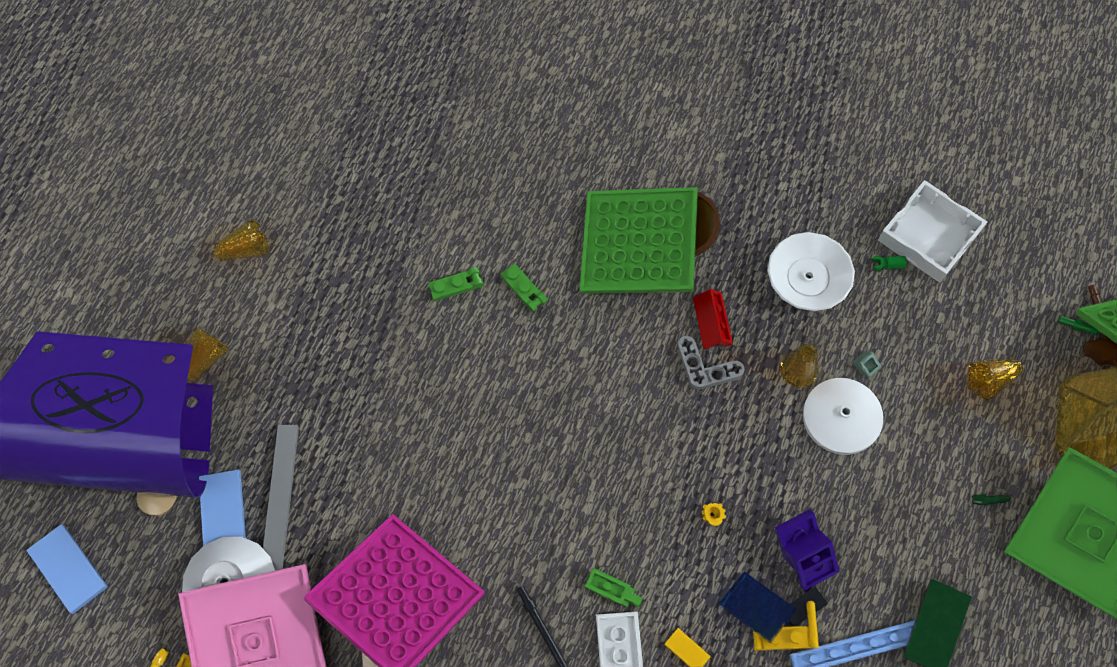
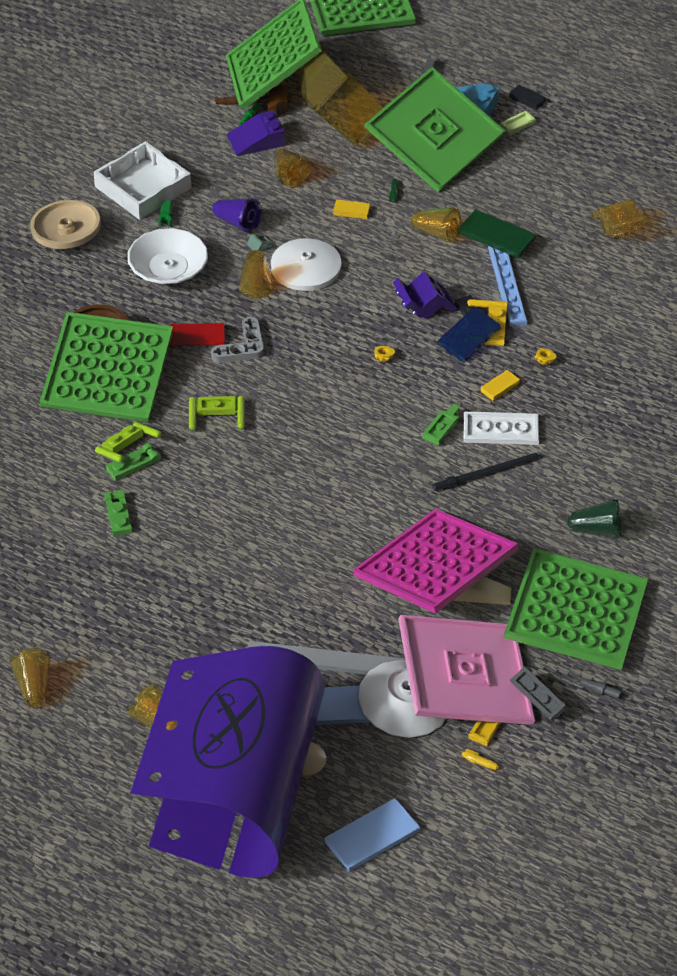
camera: 85 degrees left, 20 degrees down
(550, 273) = (124, 438): none -> lime plate
(608, 353) = (217, 406): none -> lime plate
(842, 169) = (65, 224): none -> tan dish
(900, 334) = (239, 212): none -> dark purple cone
(936, 554) = (438, 222): none -> clear yellow cone
(945, 454) = (351, 209): none -> yellow tile
(1042, 337) = (257, 134): none -> dark purple slope

